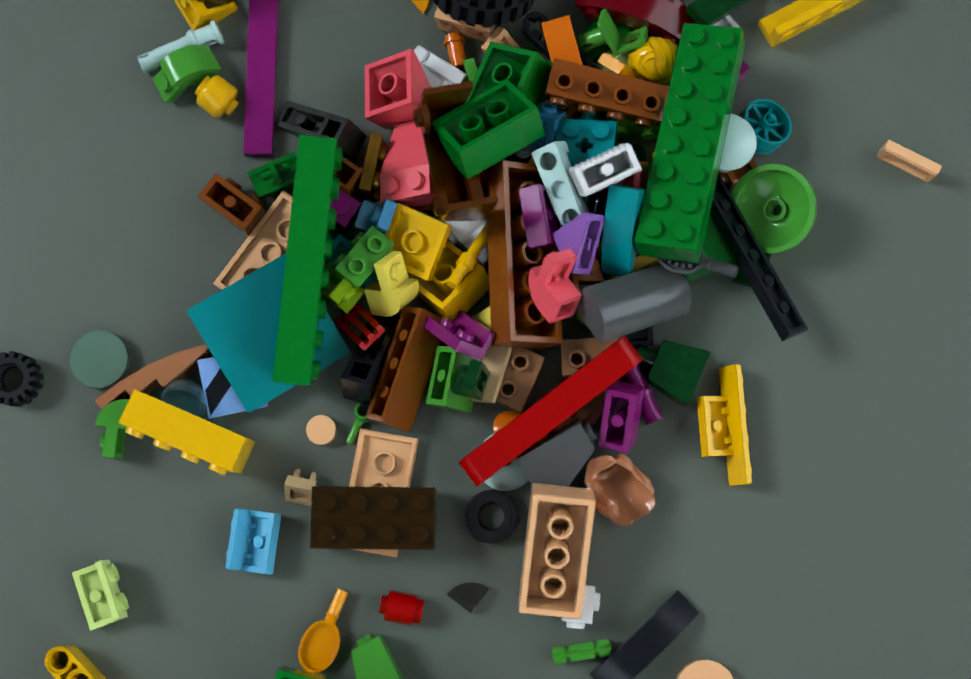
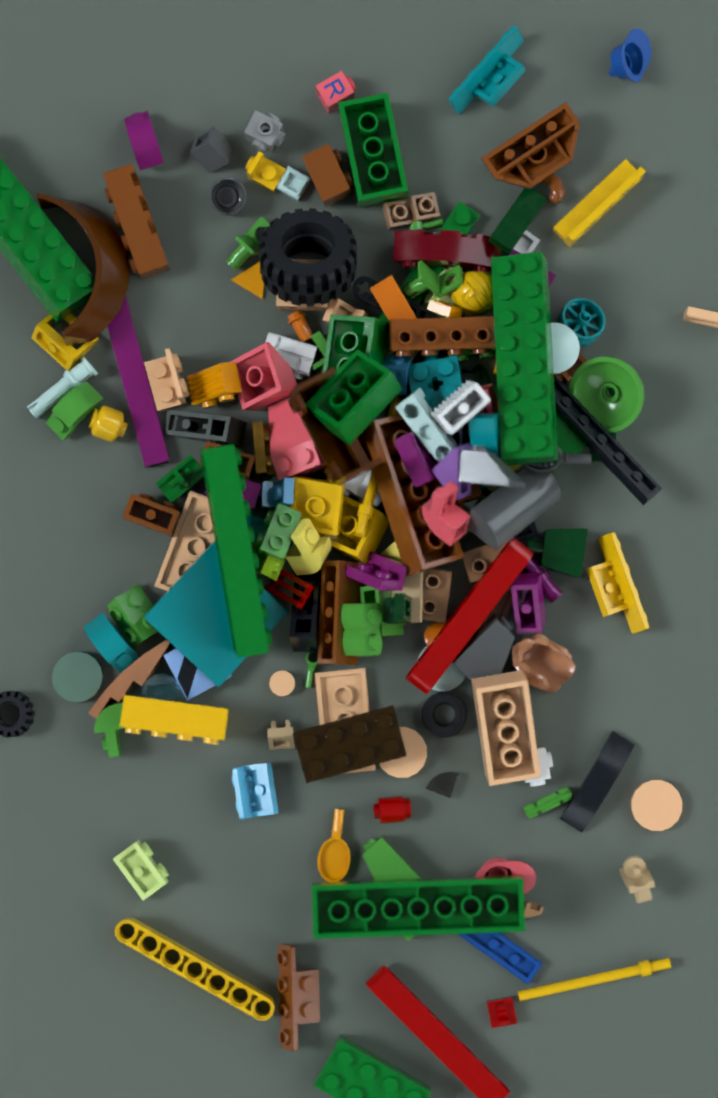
camera: 20 degrees left, 5 degrees up
(144, 330) = (110, 642): none -> teal brick
(174, 300) = (129, 611): none -> bright green bracket
(294, 69) = (165, 382): none -> light nougat bracket
(343, 84) = (214, 385): none -> light orange brick
(424, 391) = (361, 629): none -> bright green brick
(439, 560) = (415, 759): none -> light nougat tile
(614, 248) = (487, 469): none -> slope

